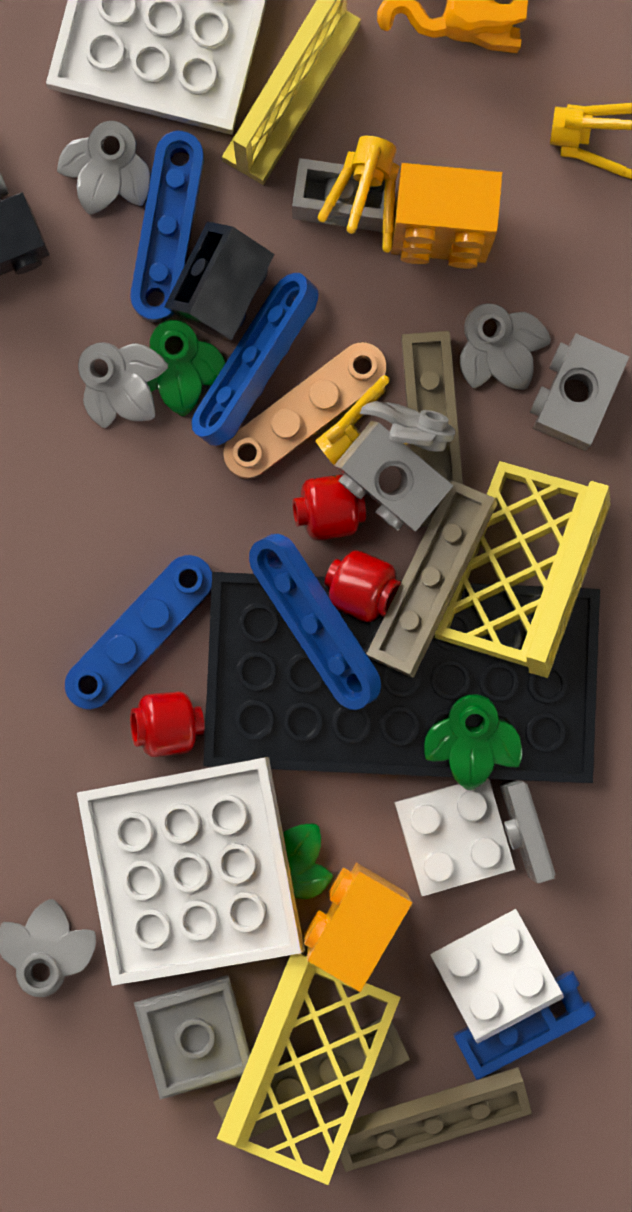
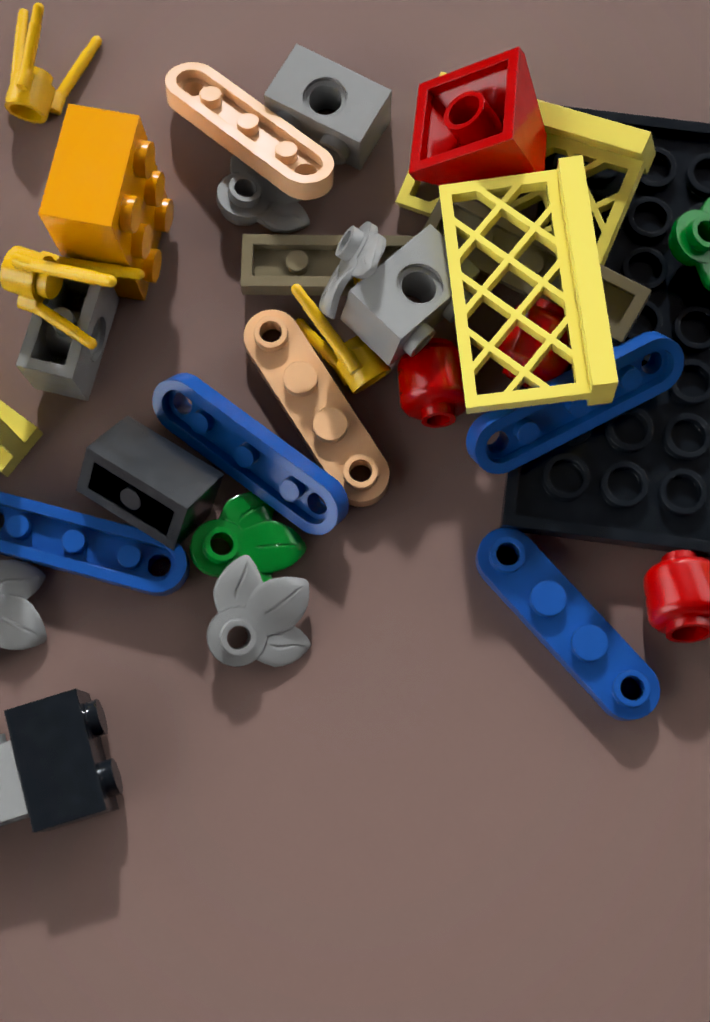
camera: 80 degrees left, 10 degrees down
(403, 609) = (579, 278): none -> light yellow fence
(546, 324) = (250, 131): none -> light nougat plate
(546, 520) = (478, 123): none -> red slope

